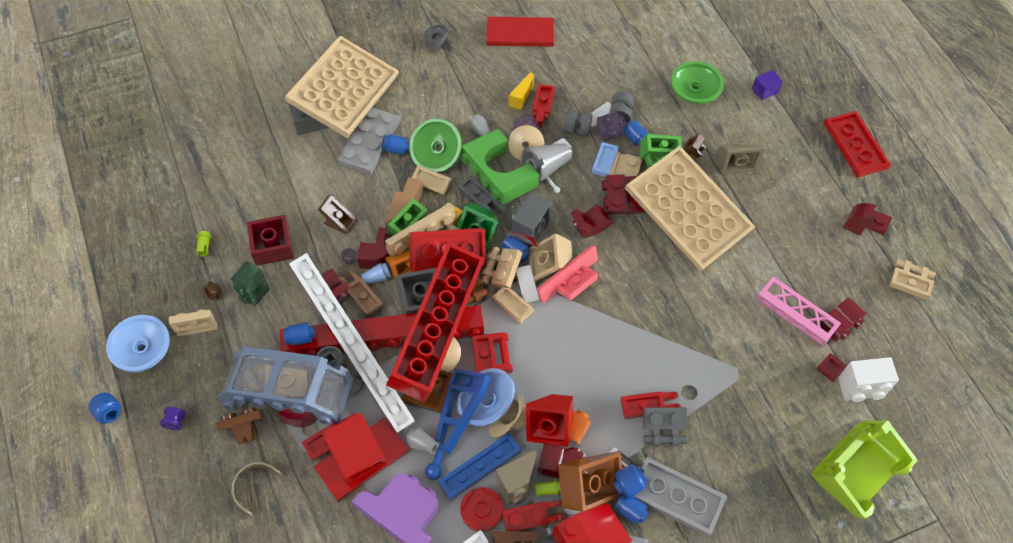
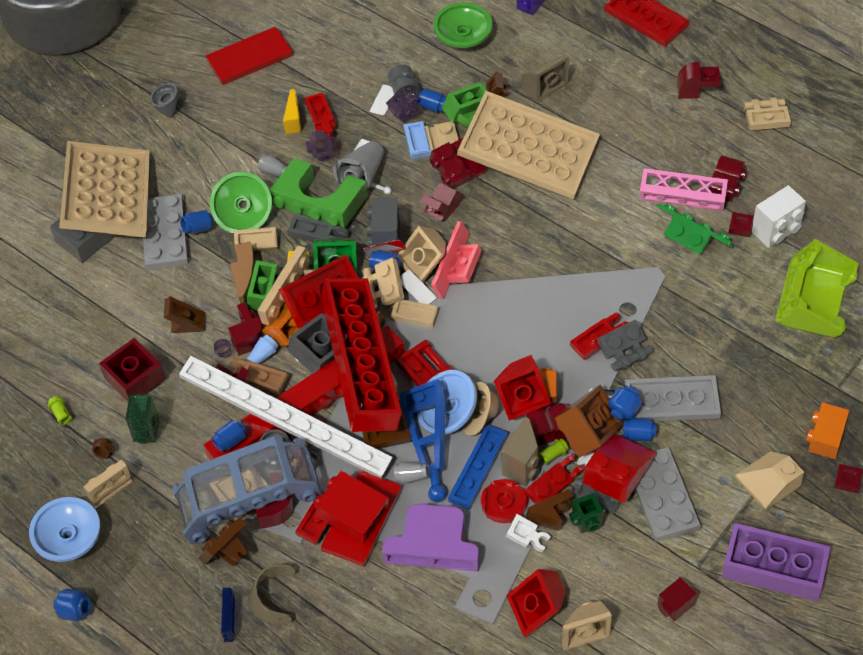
camera: 25 degrees left, 5 degrees down
(172, 418) = (149, 578): dark purple wheel -> none
(207, 484) = (228, 614): none -> clear blue tile
(521, 134) = (321, 154): tan dish -> none
(572, 119) = (361, 116): dark grey wheel -> none
(781, 353) = (689, 233): none -> green bracket

